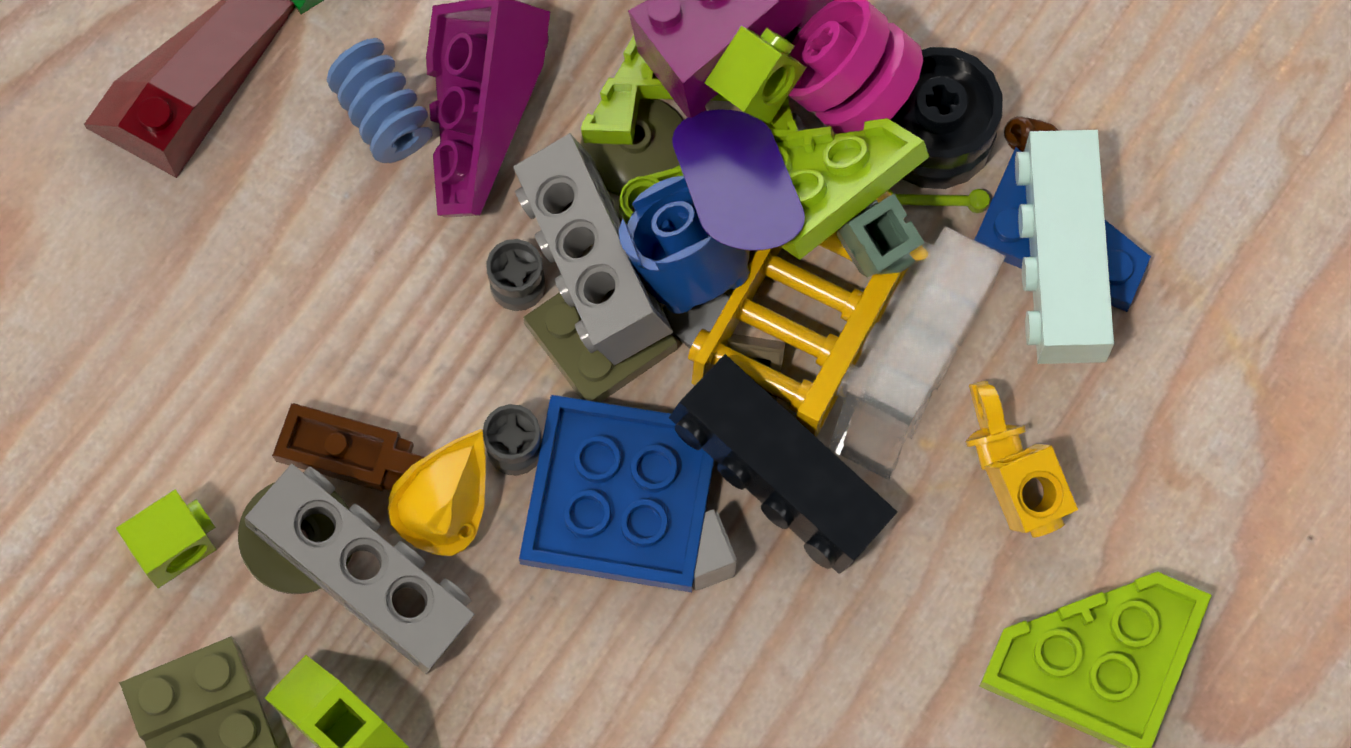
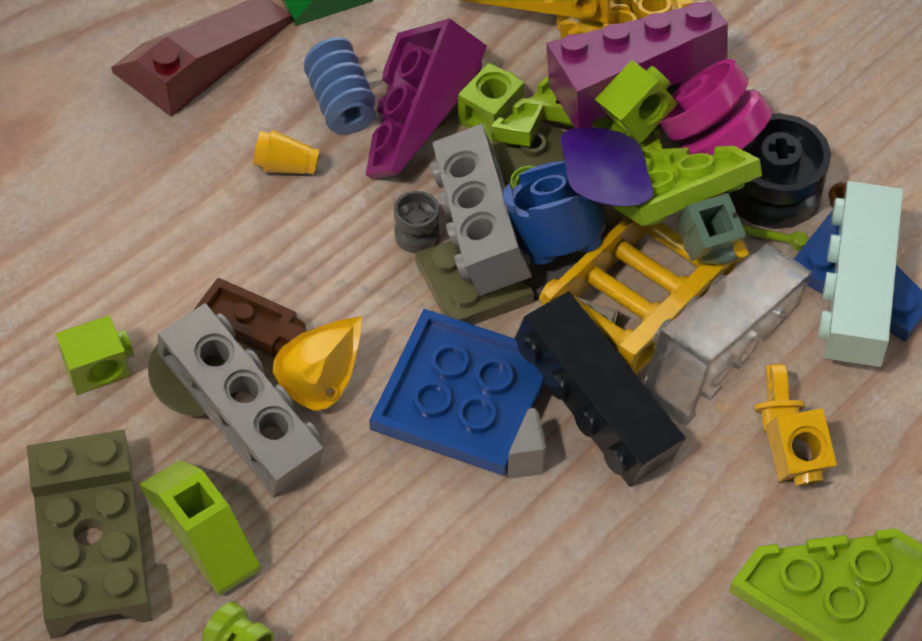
camera: 10 degrees right, 15 degrees down
(332, 210) = (284, 154): none -> yellow cone
(510, 427) = (384, 334): dark grey wheel -> none
(565, 104) = (489, 97): none -> lime brick

